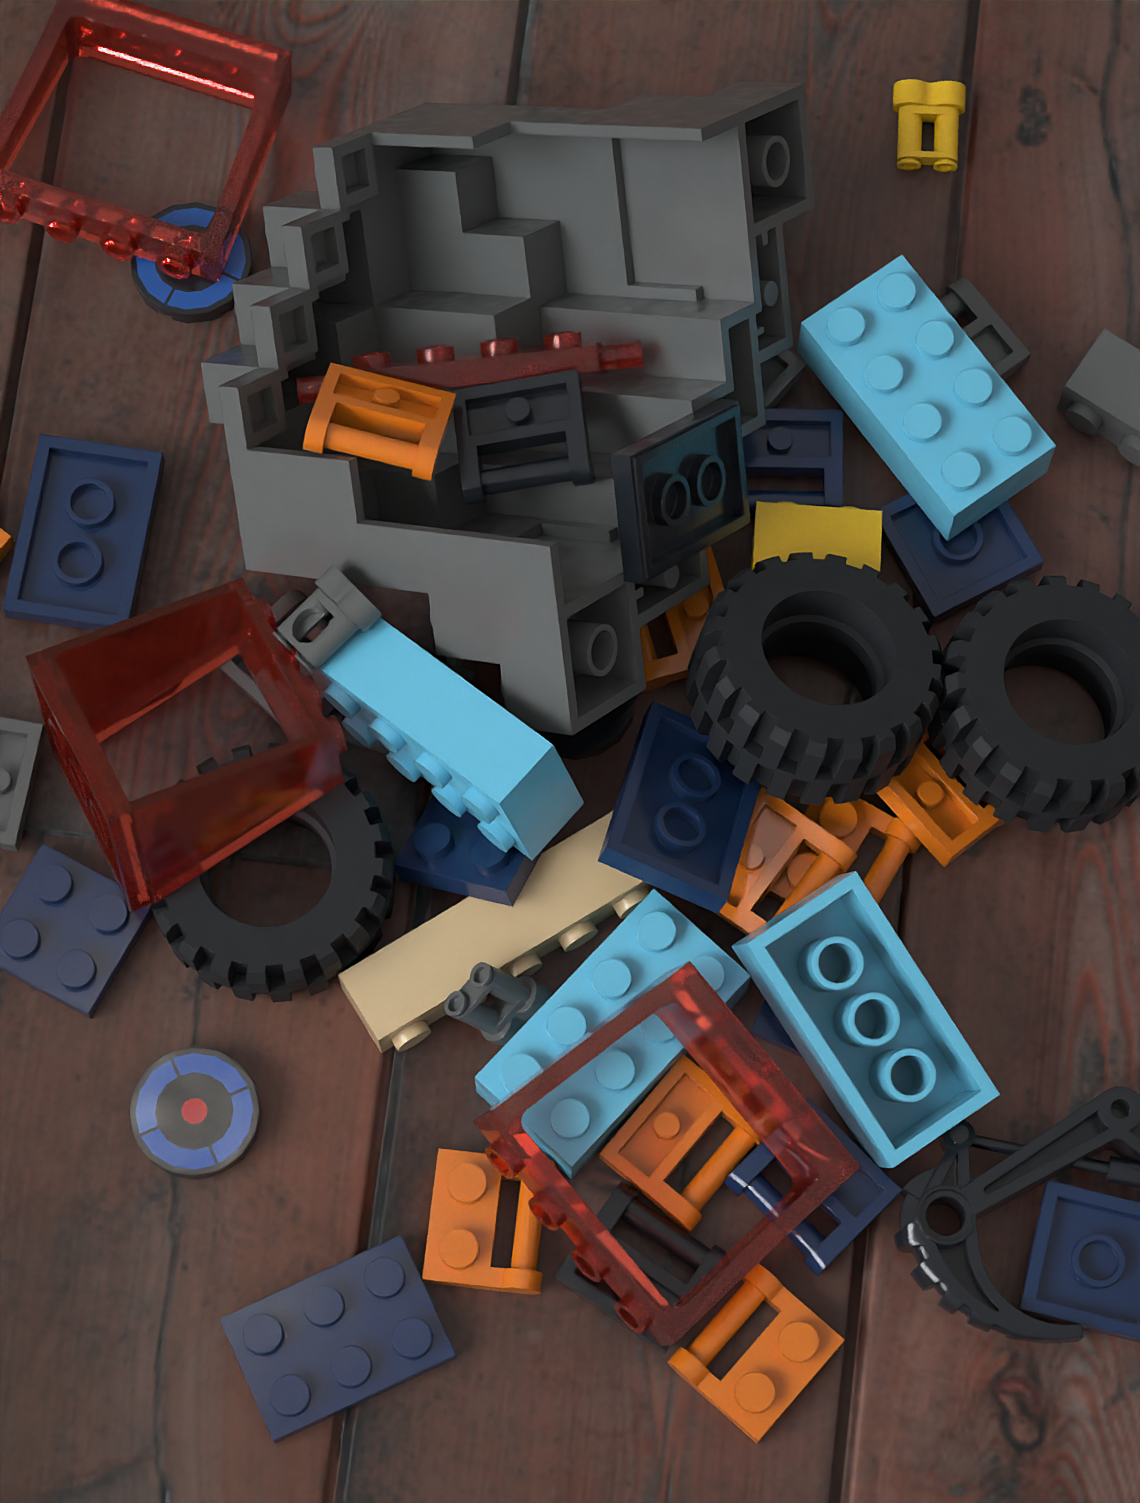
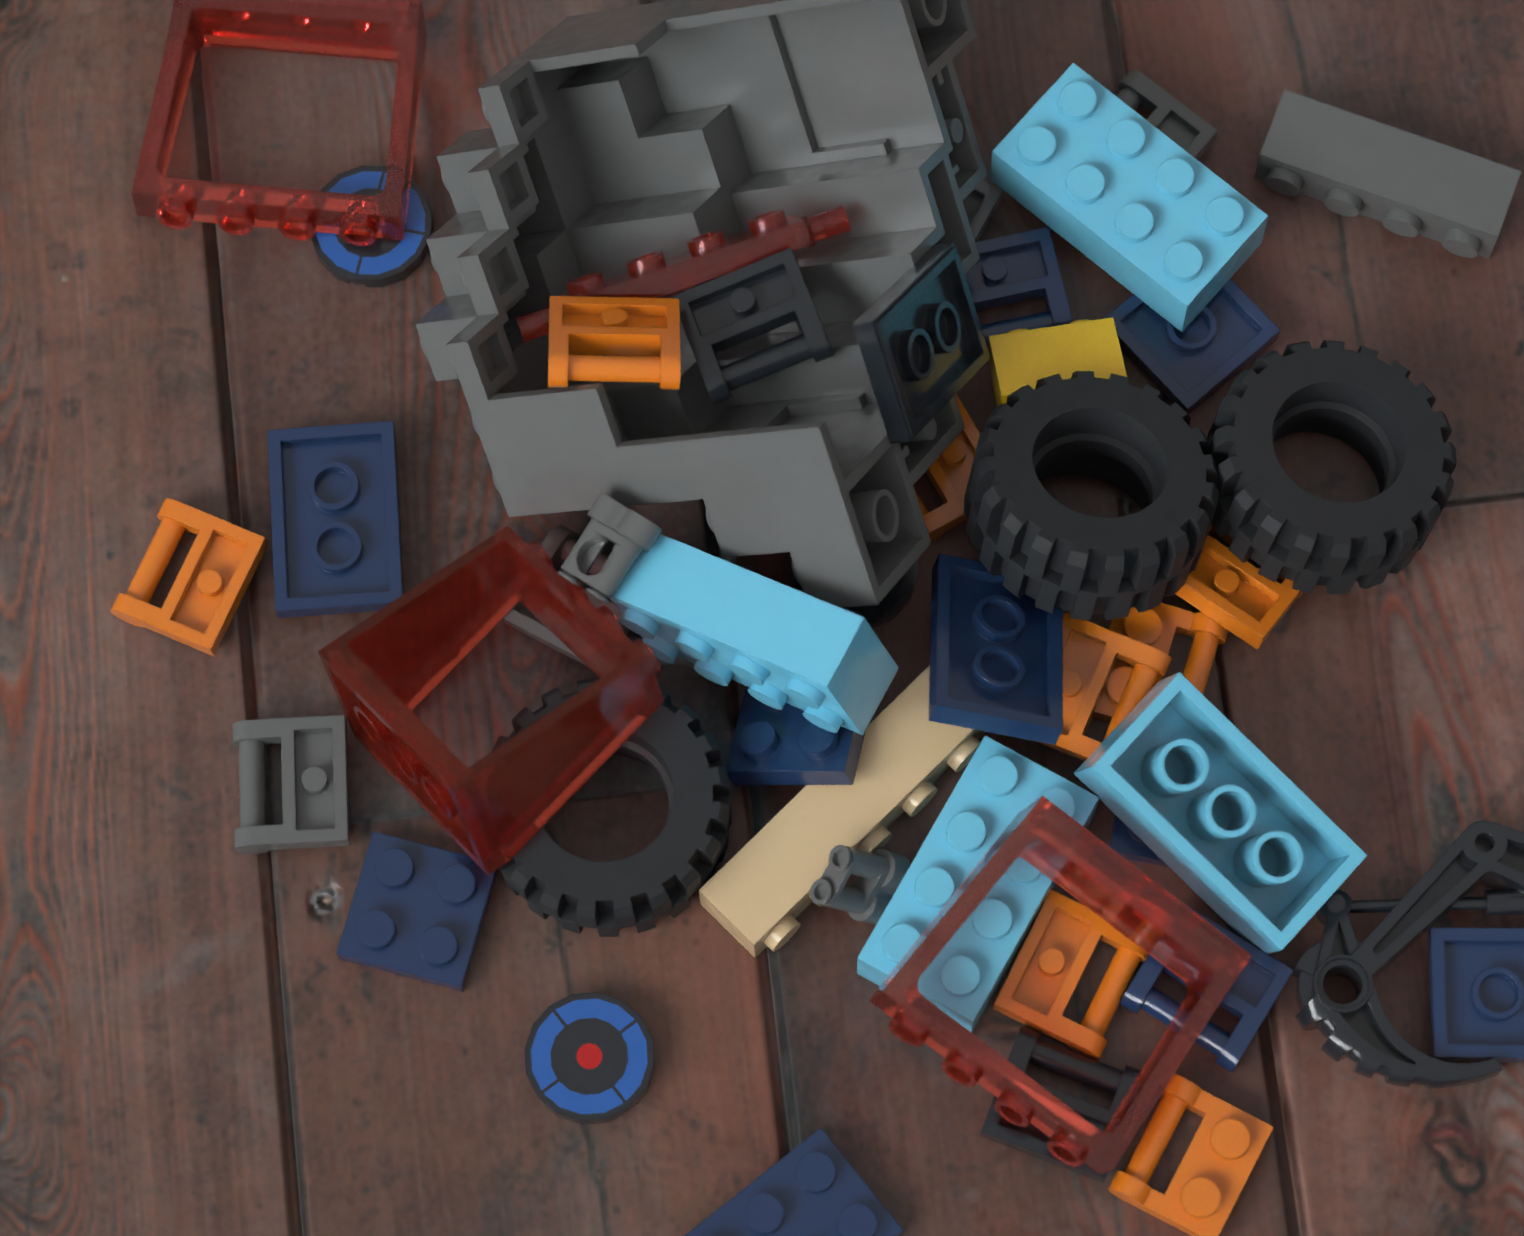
camera: 10 degrees left, 0 degrees up
(465, 1228) = (880, 1105): orange plate -> none

